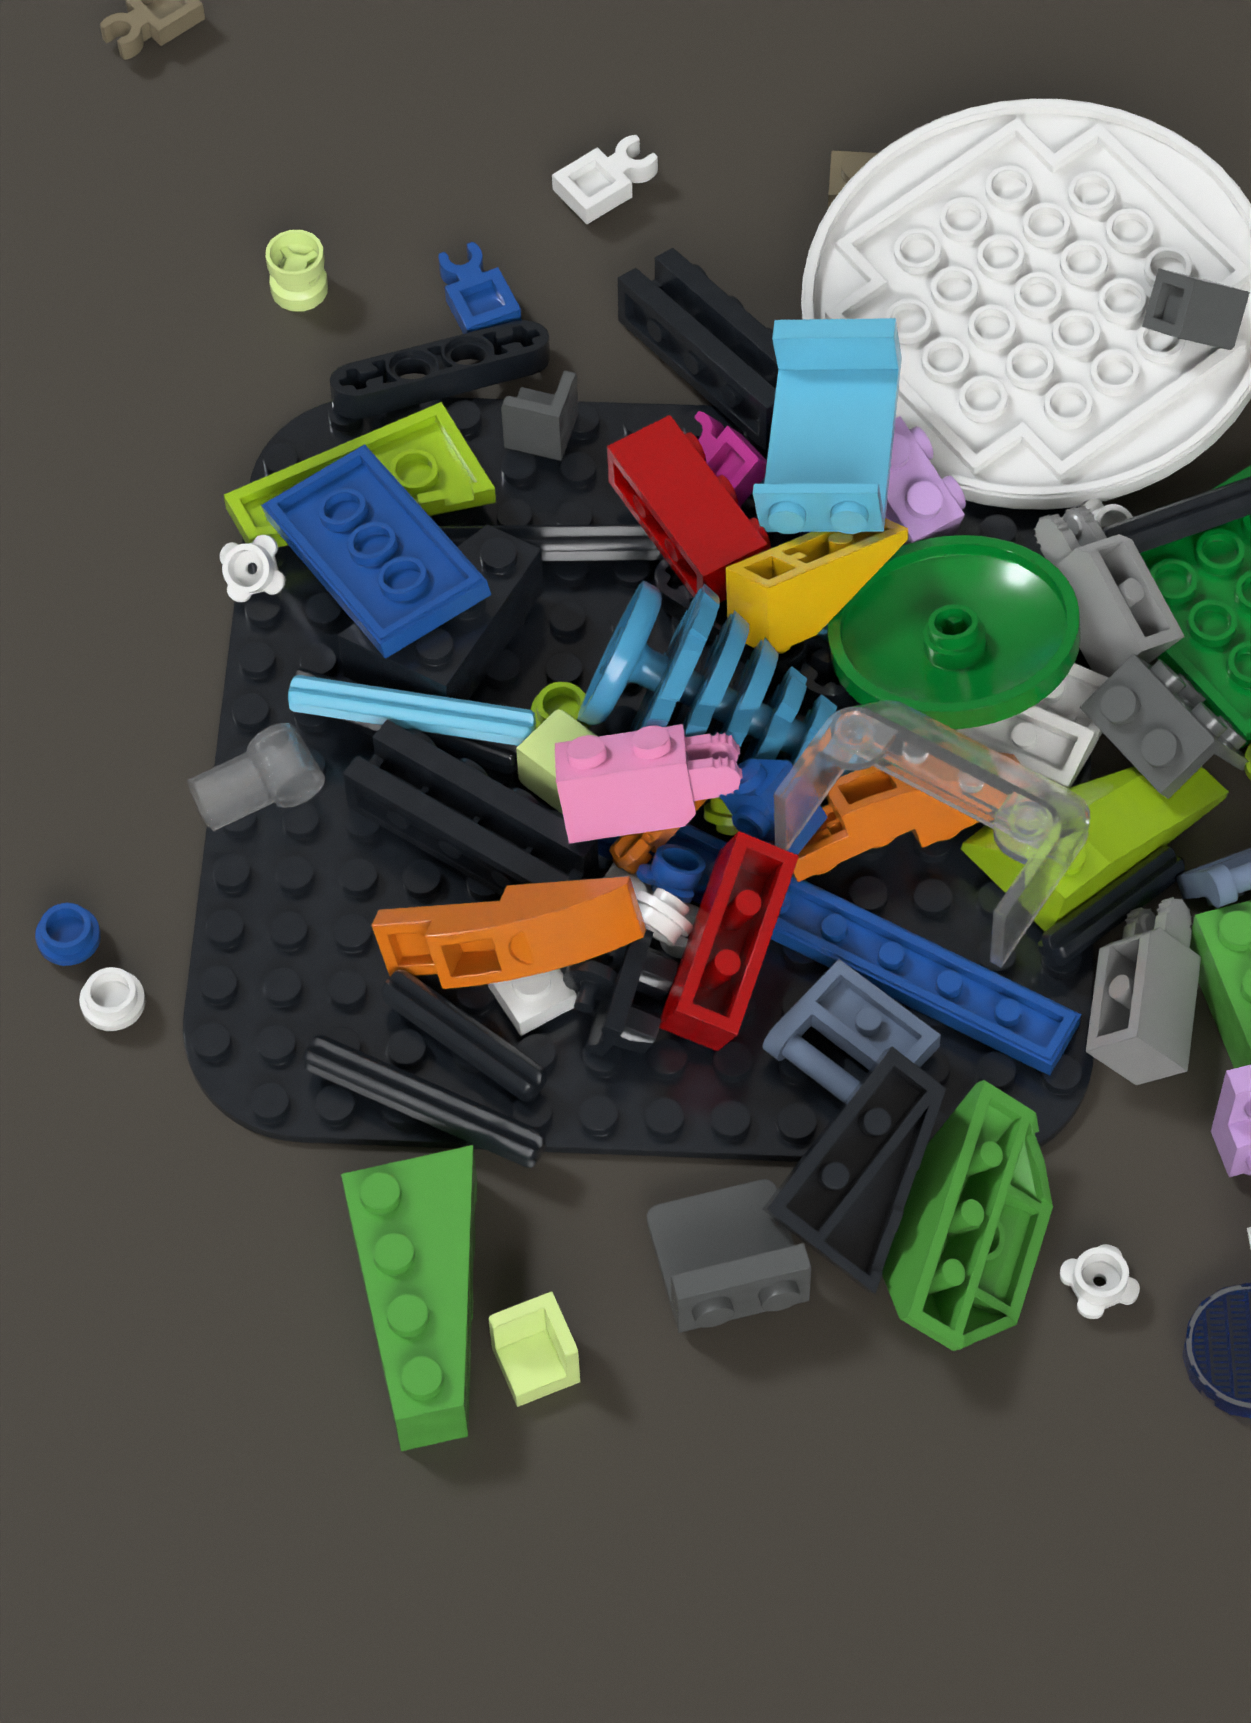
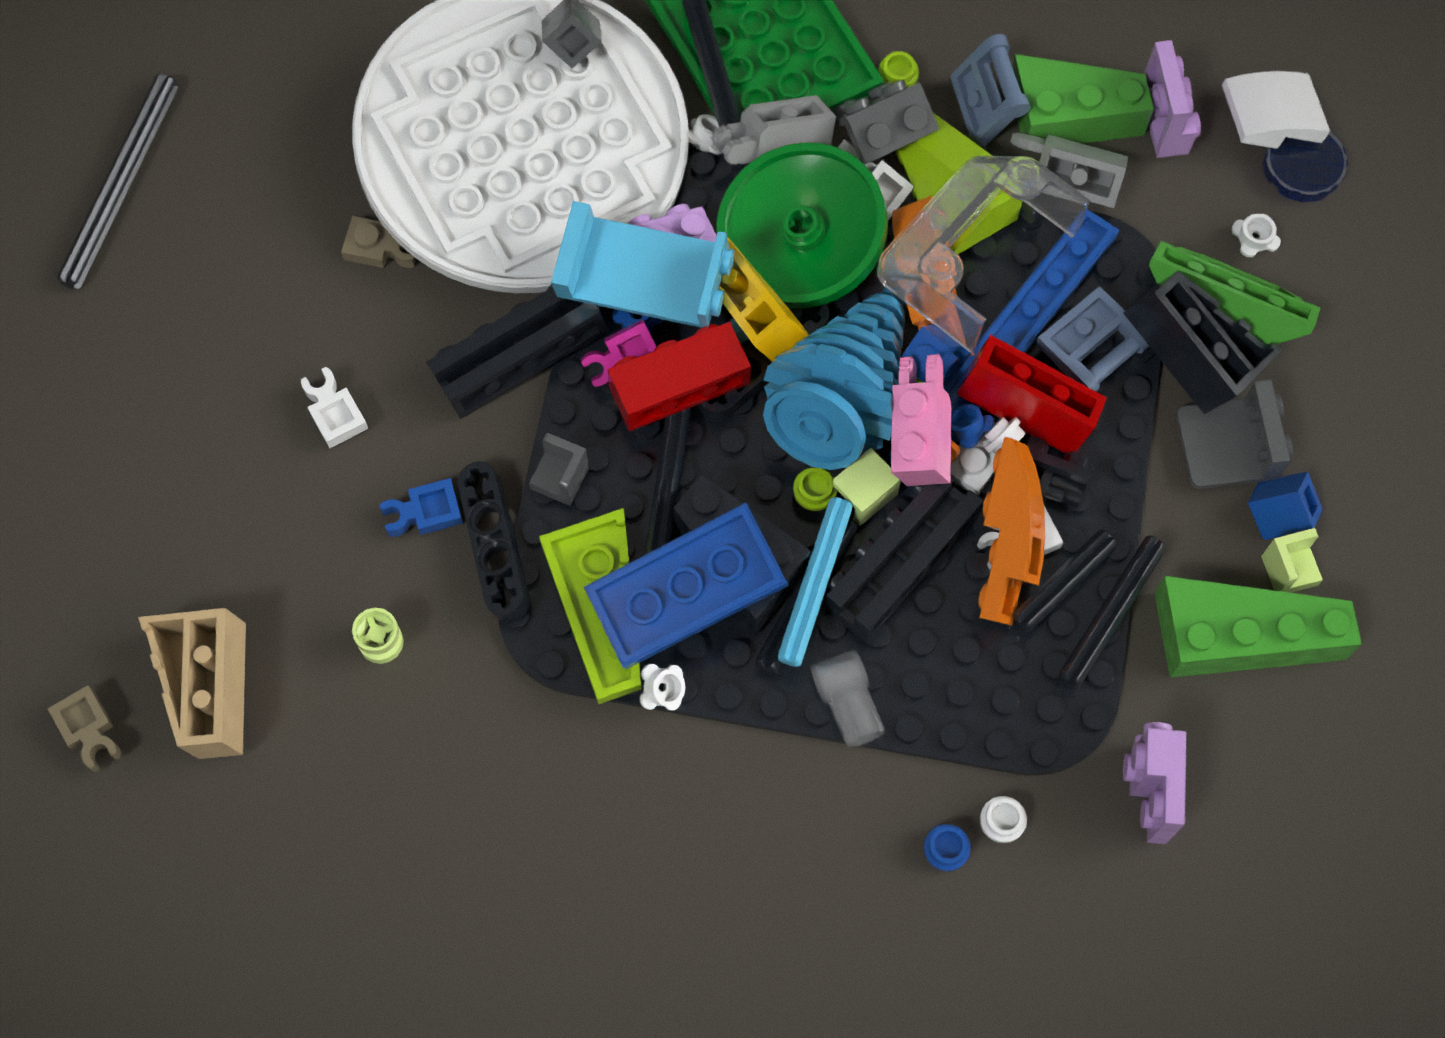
camera: 85 degrees left, 10 degrees up
(174, 1168) = (1158, 772): none -> lavender plate
(214, 104) = (201, 678): none -> tan wedge
(630, 1337) = (1285, 505): none -> blue panel

